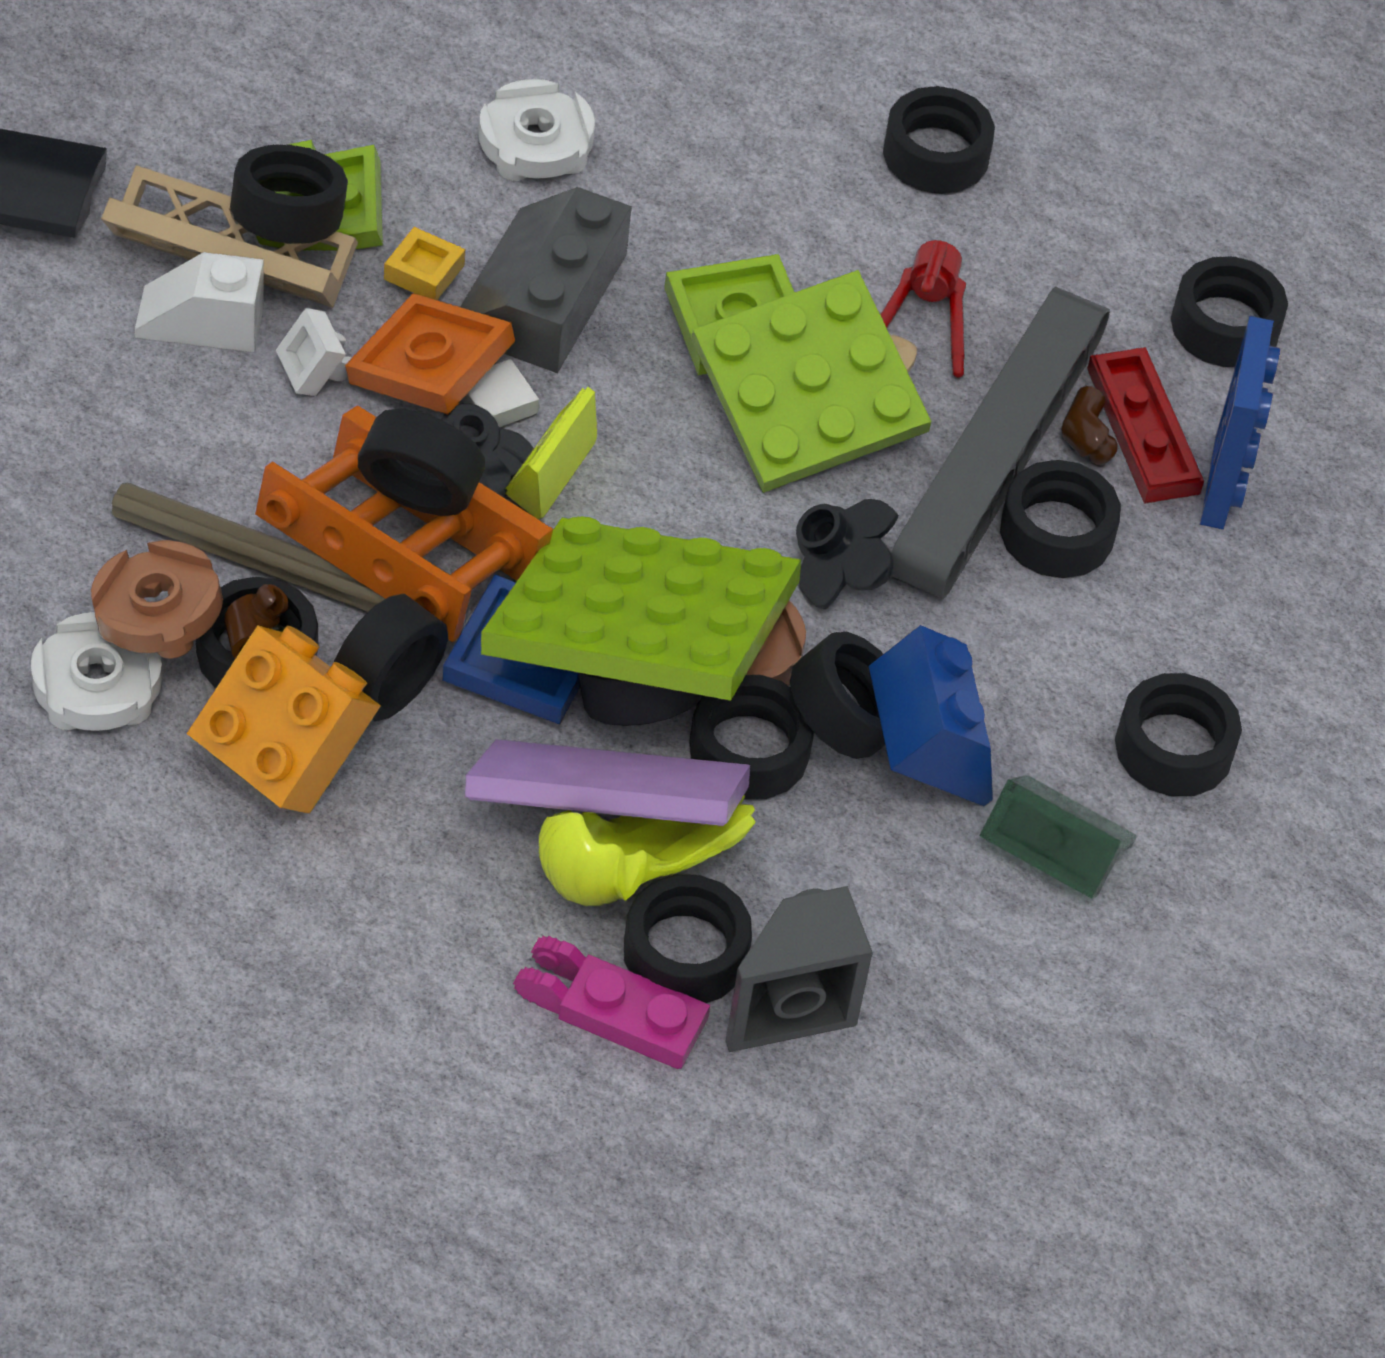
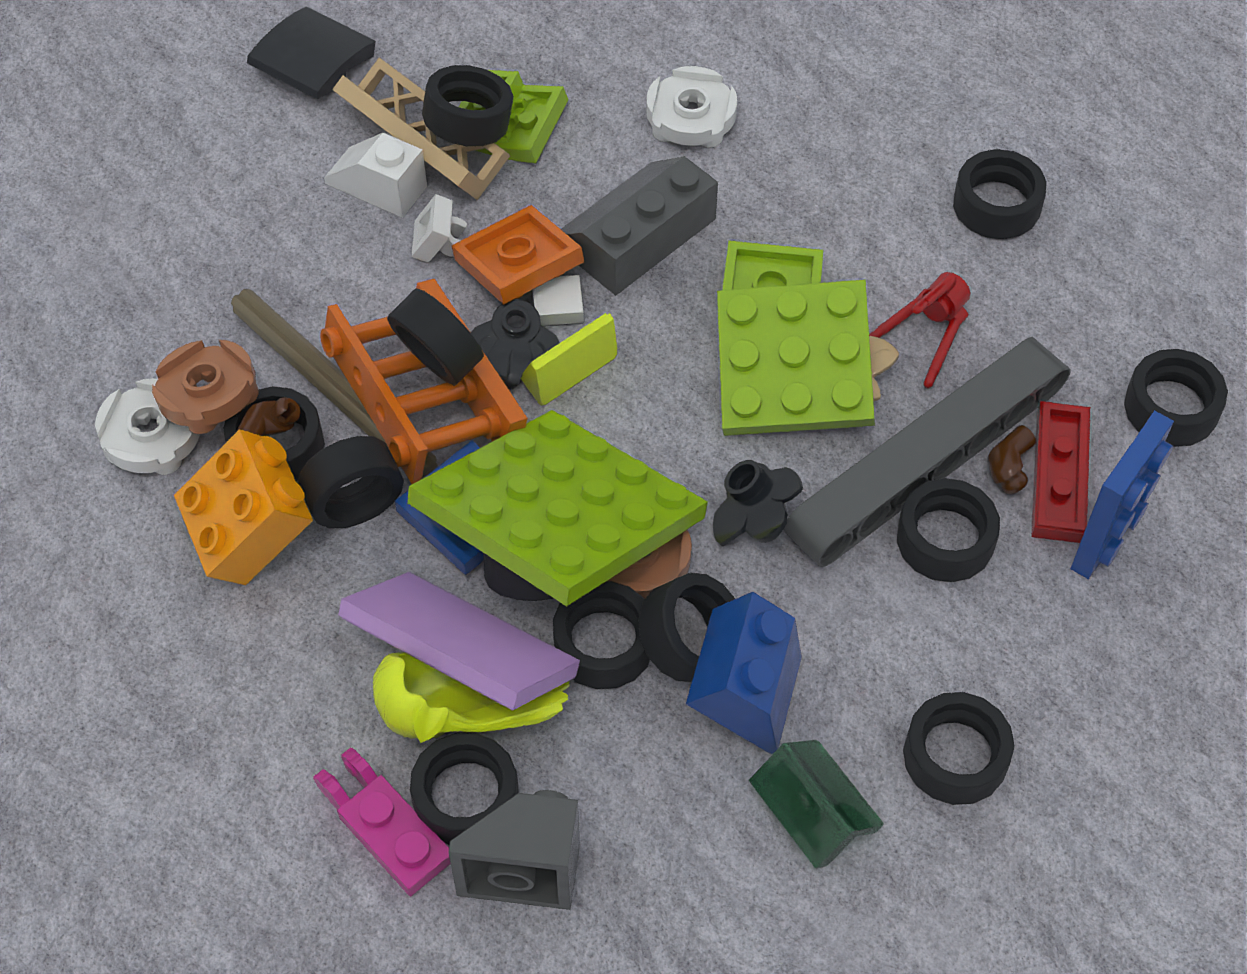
camera: 30 degrees right, 5 degrees up
(424, 264) = (553, 185): yellow plate -> none

